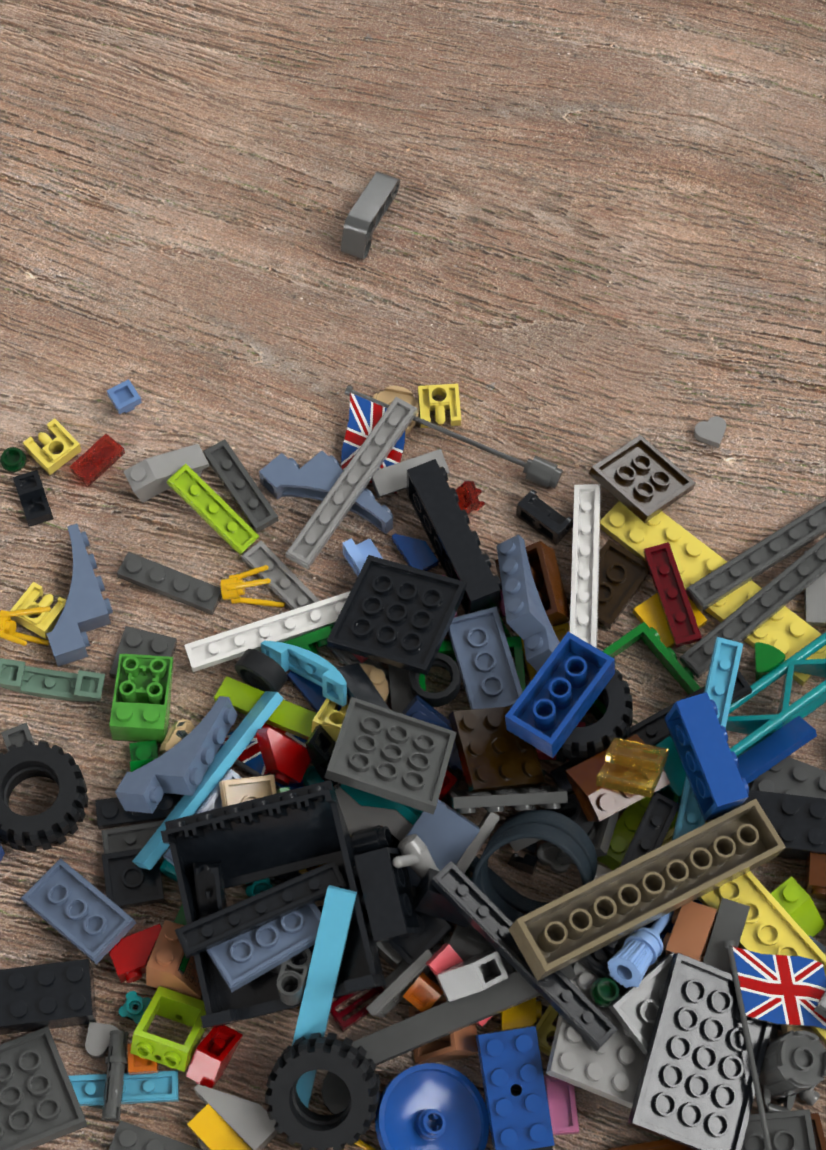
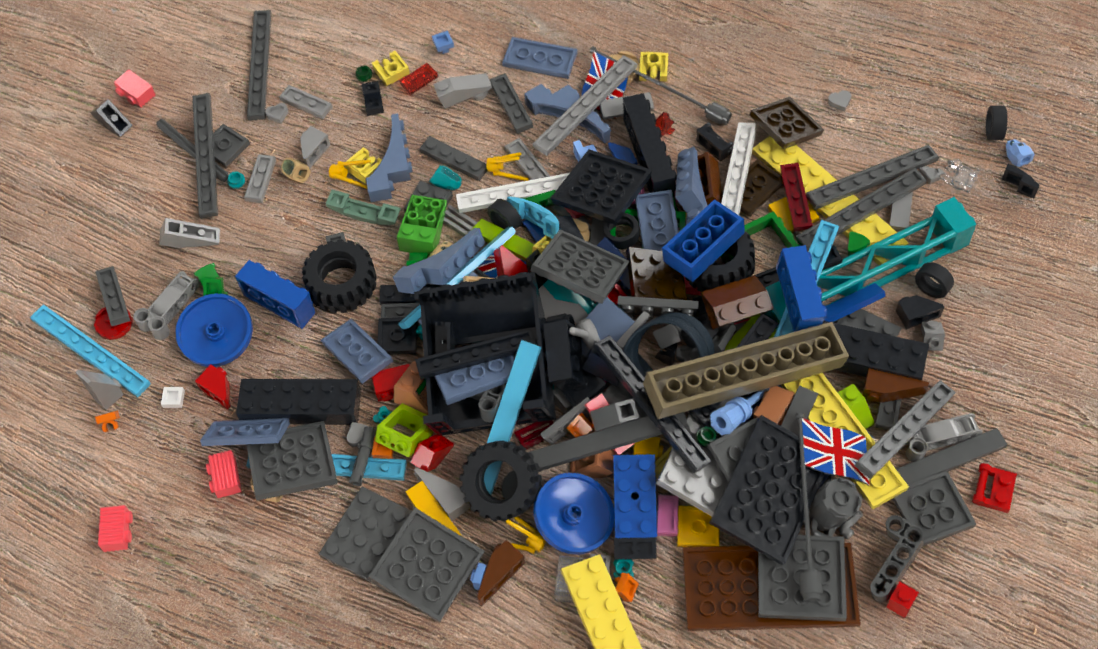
camera: 15 degrees right, 5 degrees down
(164, 619) = (446, 178): none -> teal rock
(179, 666) = (466, 219): none -> light grey tile
(213, 509) = (489, 114): lime tile -> none
(270, 406) = (540, 57): none -> sand blue tile
(603, 1121) = (695, 528): none -> yellow tile
(632, 767) = (747, 292): clear yellow slope -> none

